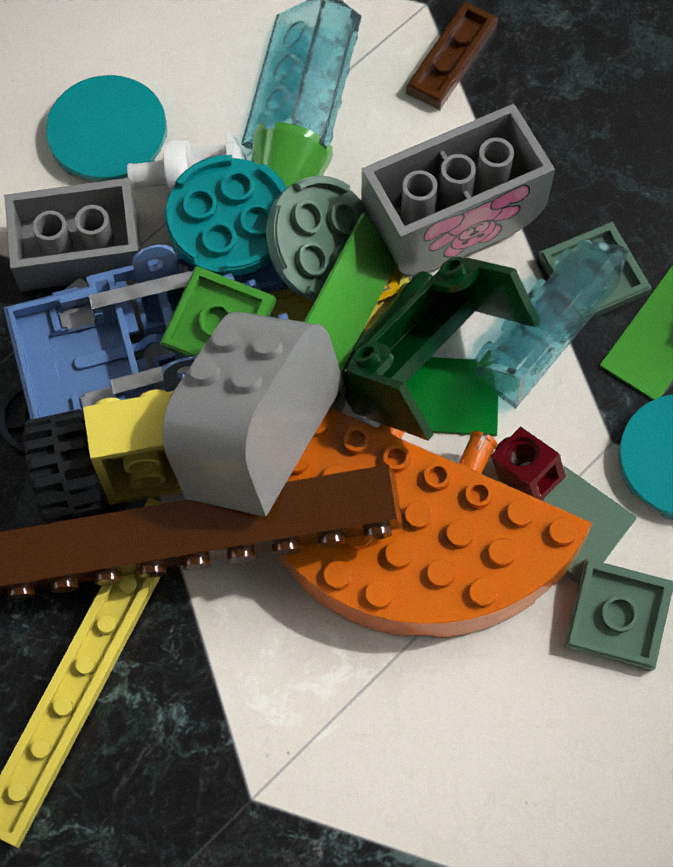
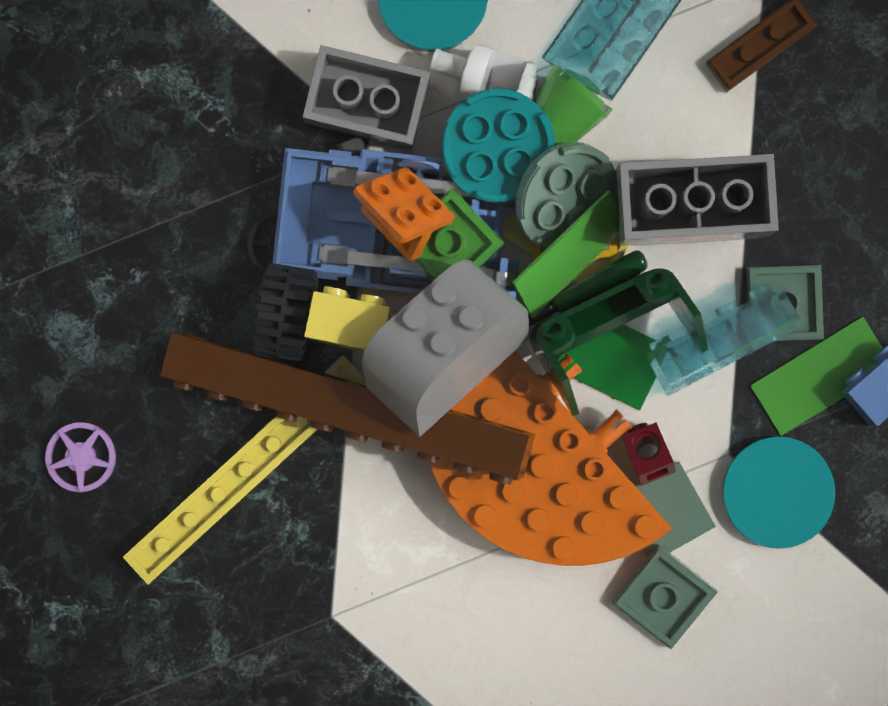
camera: 20 degrees right, 20 degrees up
(150, 304) = (403, 210): none -> orange bracket

